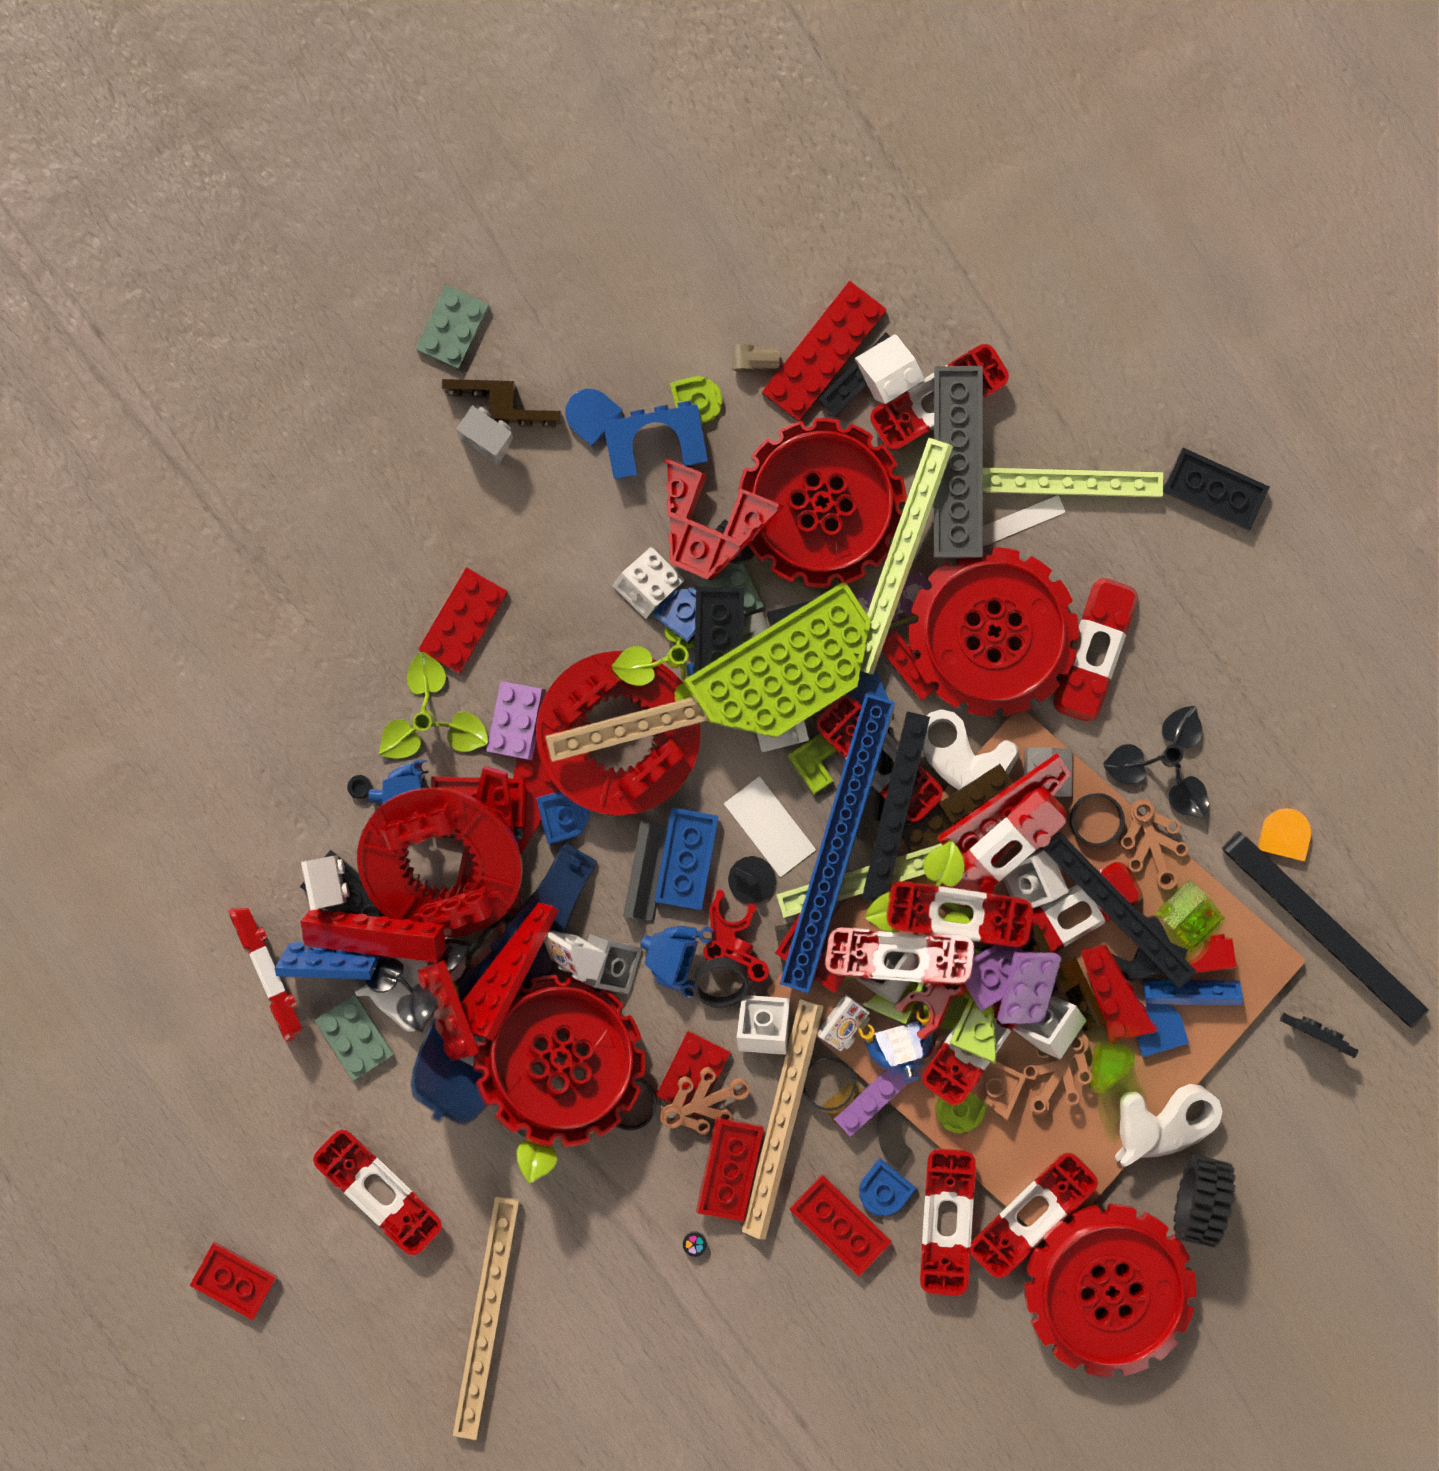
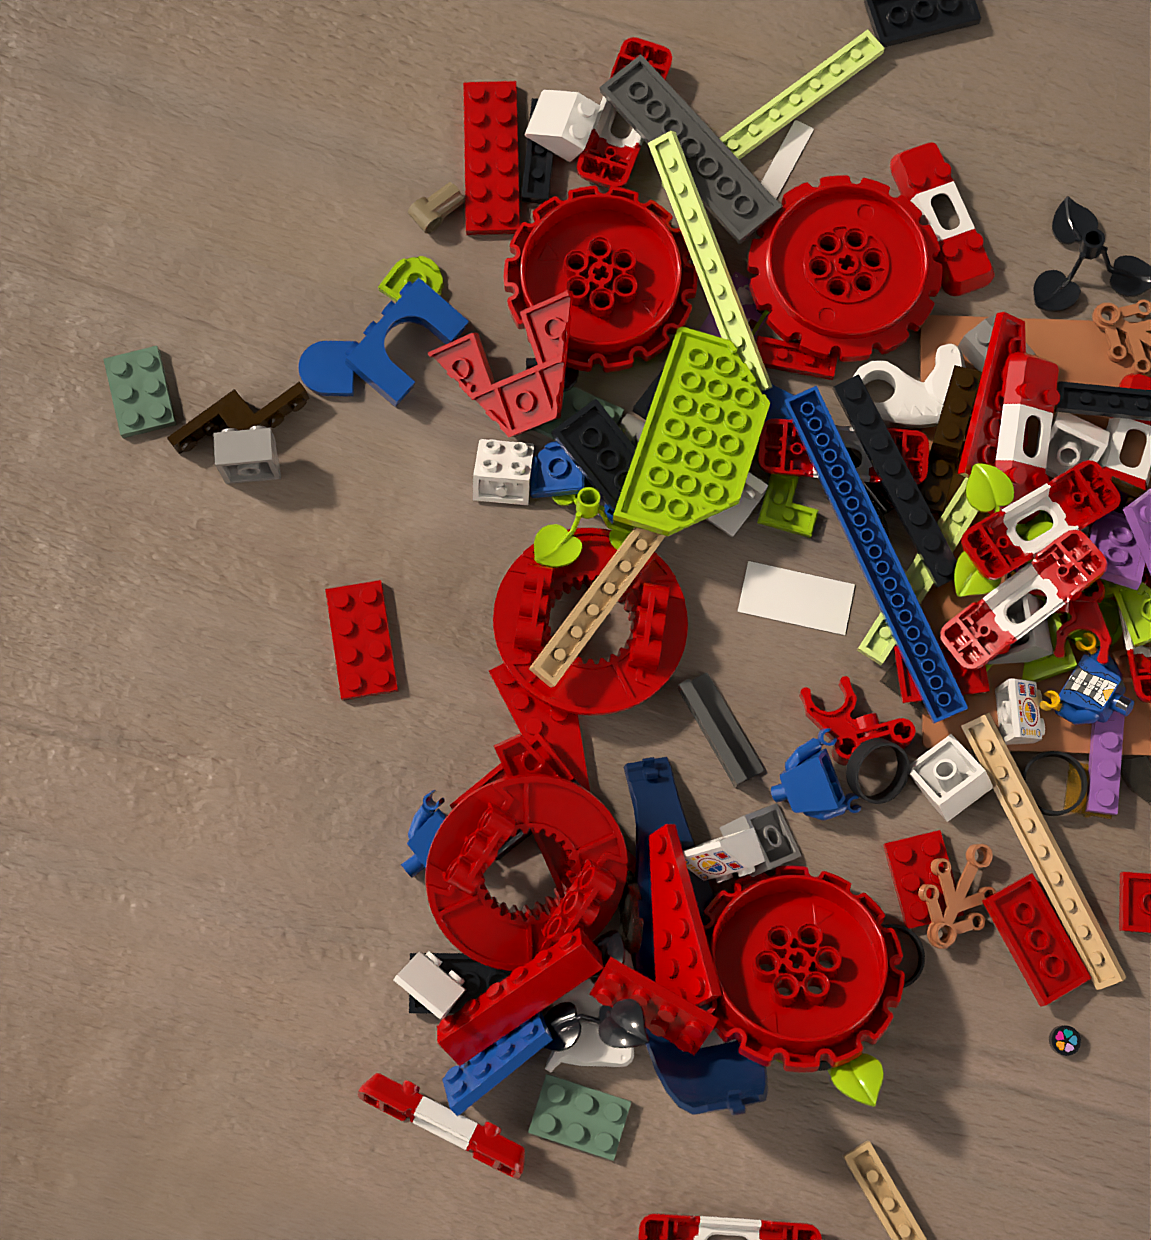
camera: 45 degrees left, 10 degrees down
(359, 786) = (389, 872): black tile -> none
(399, 737) = (391, 795): lime plant -> none
(515, 720) = (486, 688): medium lavender plate -> none
(561, 817) = (601, 742): blue tile -> none
(686, 858) = (747, 686): blue plate -> none
(751, 879) = (821, 658): black shield -> none
(1121, 823) = (1090, 332): black tyre -> none

